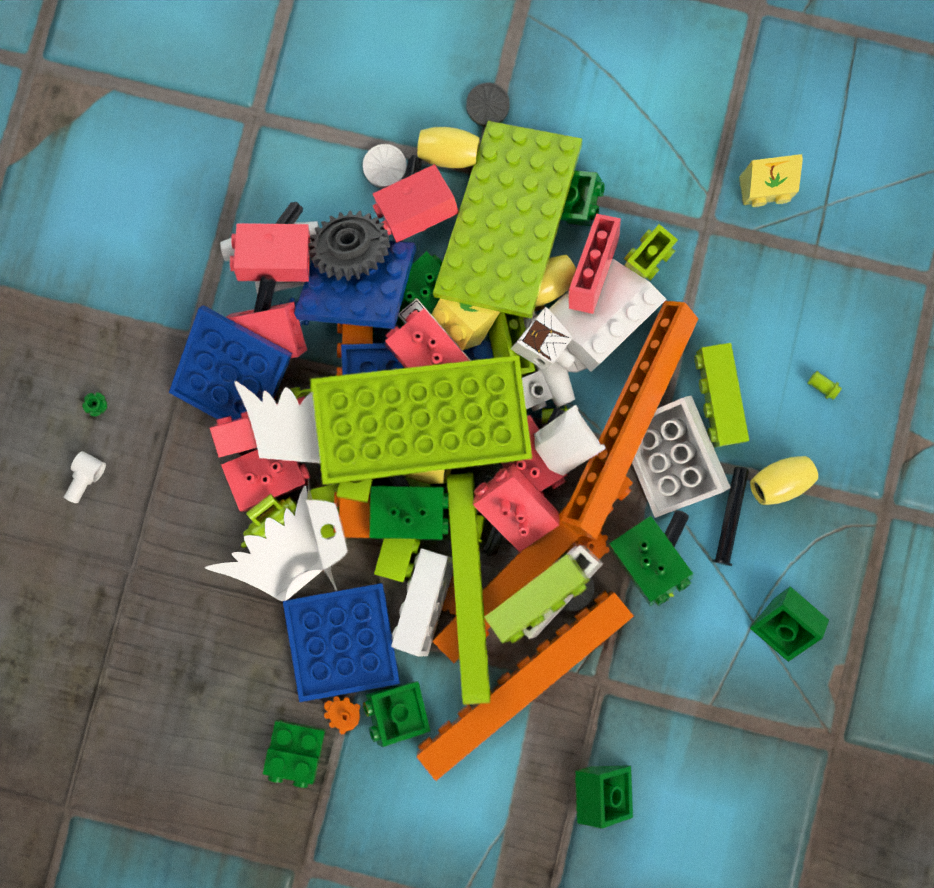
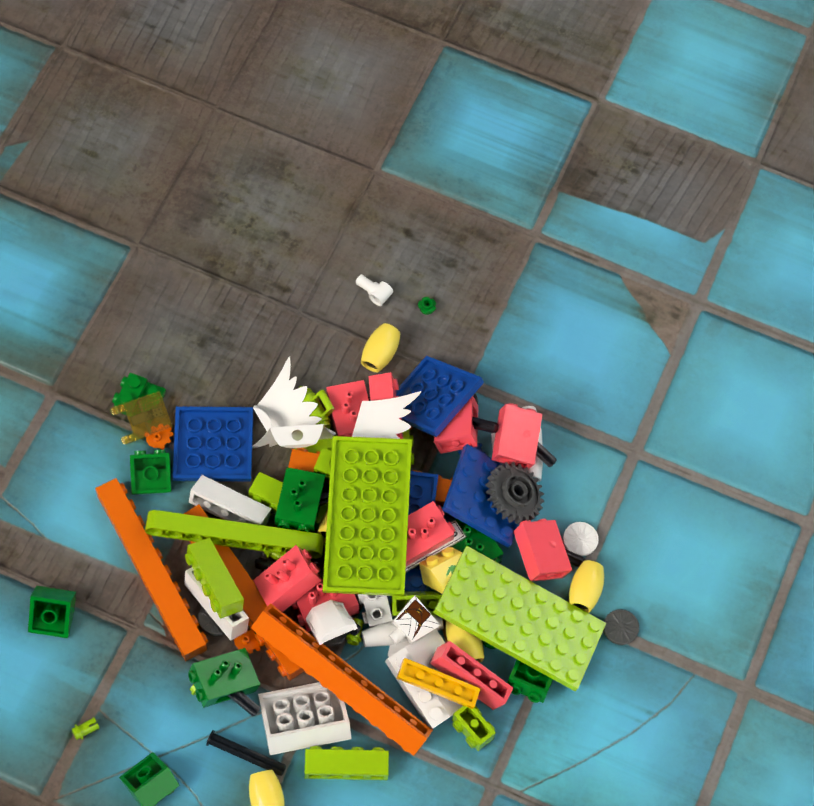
camera: 95 degrees right, 20 degrees down
(169, 452) = (380, 347): none -> light yellow piece
(320, 738) = (145, 415): none -> clear yellow flag
(619, 297) = (438, 683): none -> yellow plate
(741, 716) = (84, 729): none -> lime pin

